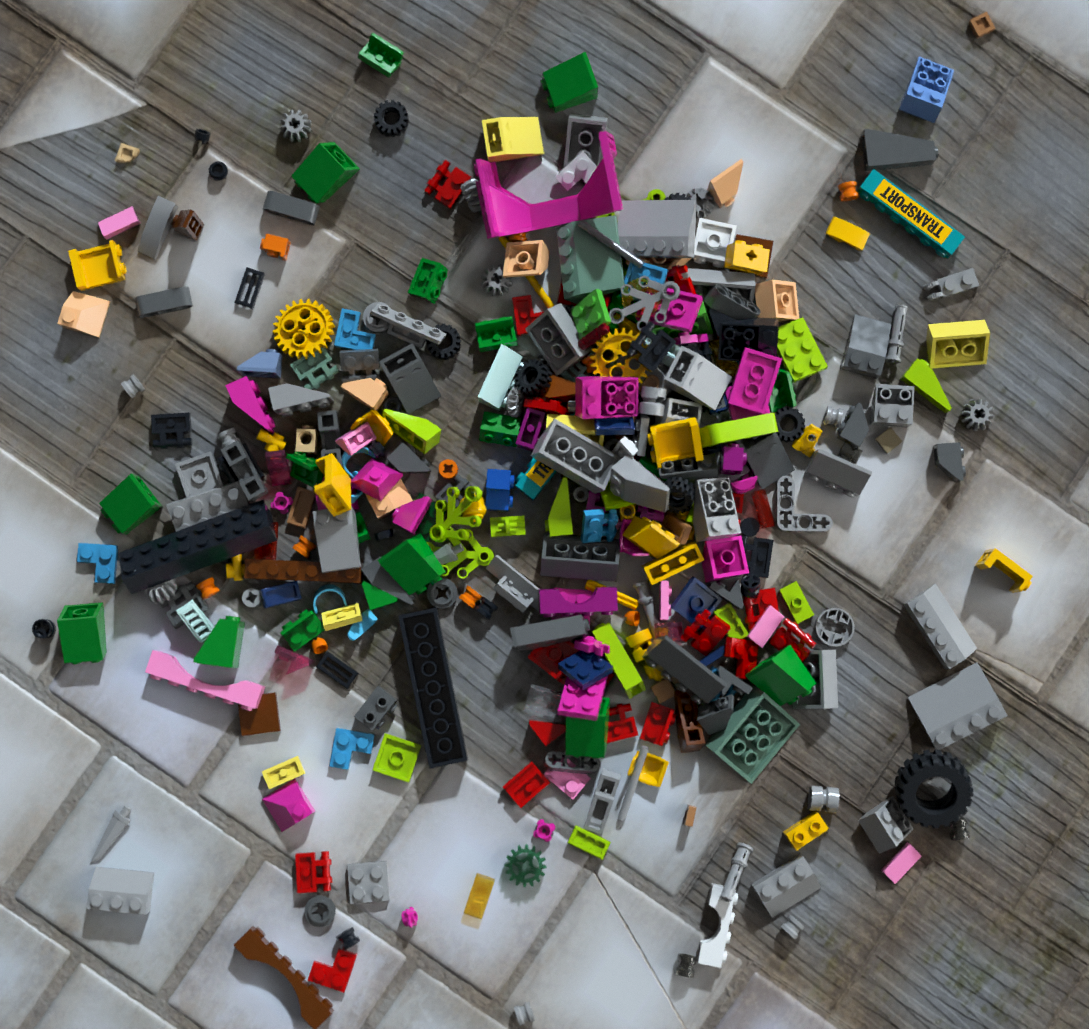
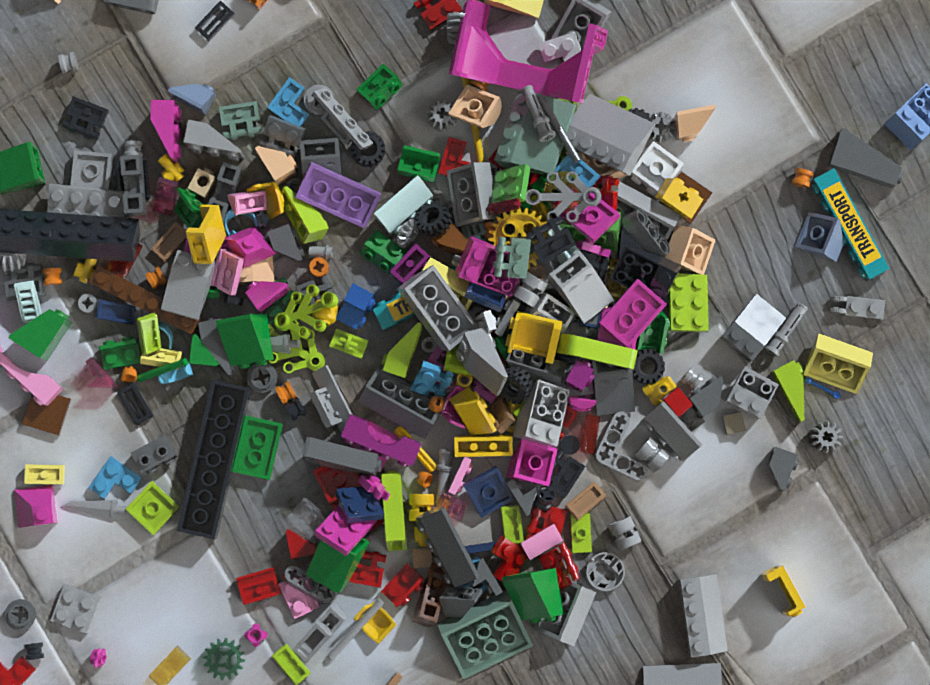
camera: 25 degrees right, 0 degrees up
(276, 503) = (159, 229): dark pink plate -> none
(294, 316) = (249, 95): yellow gear -> none
(307, 873) = (24, 574): red plate -> none
(321, 600) = (149, 333): none -> lime plate
(348, 627) = (162, 370): none -> green bar
(349, 779) = (104, 508): none -> light grey bar
(367, 510) = (227, 272): none -> bright pink plate
(435, 395) = (338, 195): none -> medium lavender plate
(443, 454) = (323, 252): none -> light grey pin
(467, 658) = (257, 447): none -> green plate
(550, 407) = (438, 253): red plate -> none
(591, 244) = (540, 121): none -> light grey pin
(609, 544) = (432, 404): none -> orange hinge
(629, 378) = (517, 257): none -> sand green plate
(709, 636) = (486, 527): red plate -> none
(787, 571) = (585, 501): none -> medium nougat tile
(829, 502) = (652, 454): none -> light grey wheel
(830, 443) = (678, 402): none -> red panel
(833, 578) = (622, 526): none -> light grey wheel
(848, 233) = (784, 216): yellow slope -> none
(889, 236) = (821, 236): none -> sand blue slope
(967, 373) = (836, 394): none -> blue hinge

